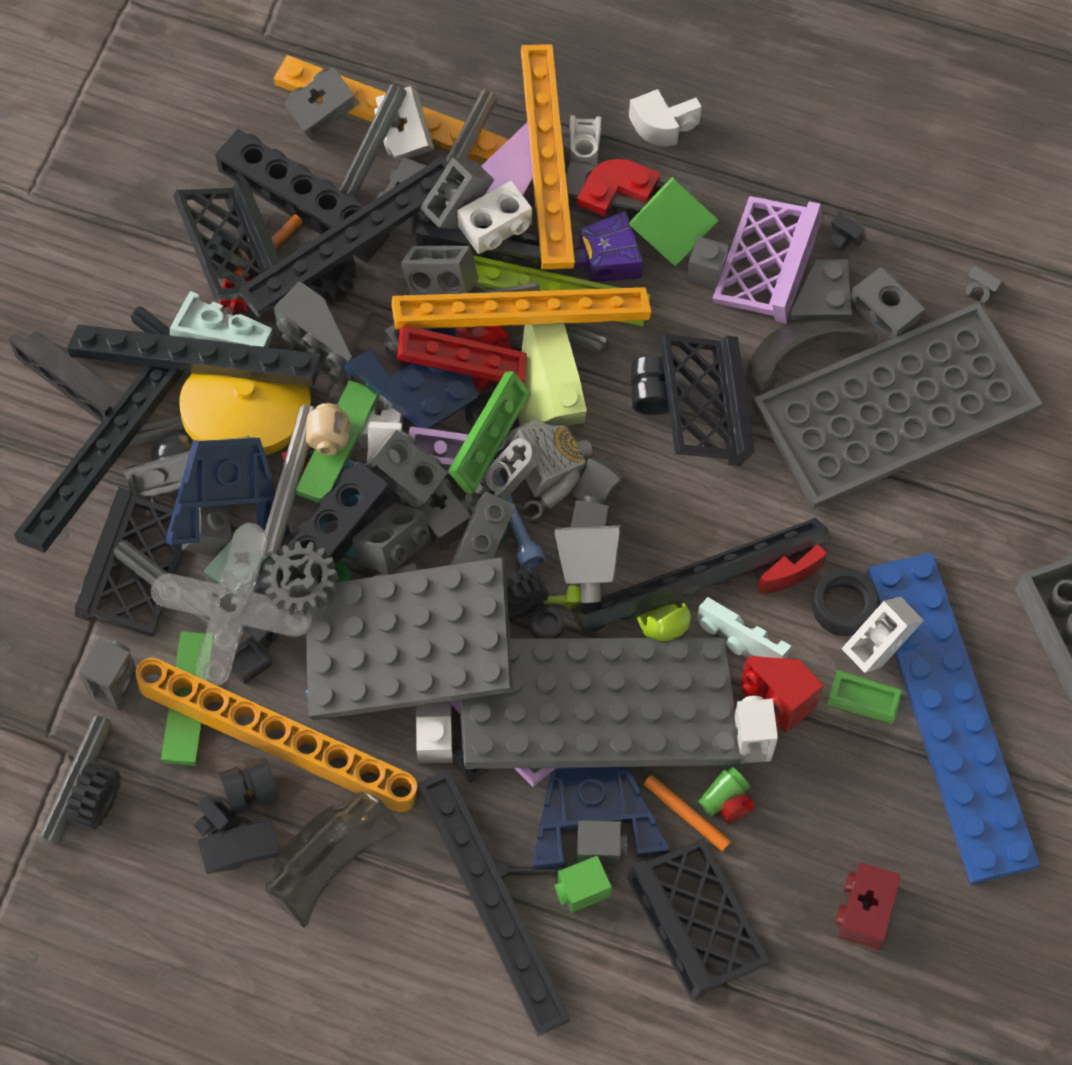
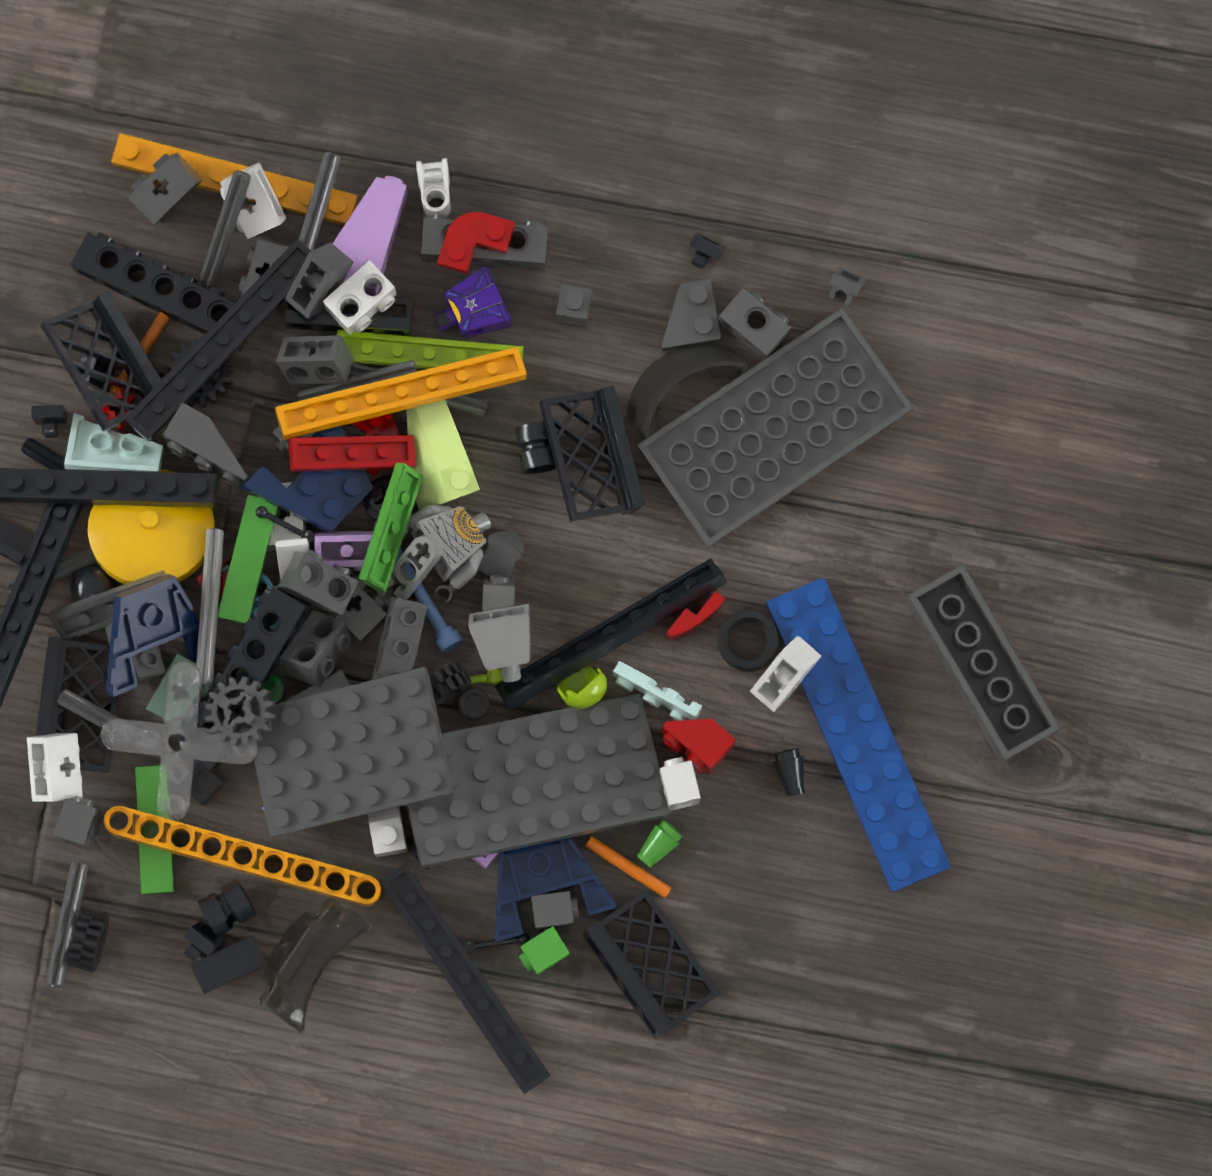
camera: 10 degrees left, 15 degrees up
(96, 609) = (54, 767): none -> white brick
(165, 290) = (49, 417): none -> black tile
(328, 429) = (237, 553): tan head -> none
(360, 396) = (262, 512): none -> black hinge
(547, 157) = (400, 219): light orange plate -> none
(662, 124) = (505, 155): white brick -> none
(673, 221) = (535, 270): bright green tile -> none
(737, 808) = (674, 856): red tile -> none
(792, 269) = (659, 291): lavender fence -> none
(865, 697) = (777, 729): bright green tile -> none
(875, 738) = (790, 769): none -> black cone
(880, 889) = (807, 948): dark red brick -> none

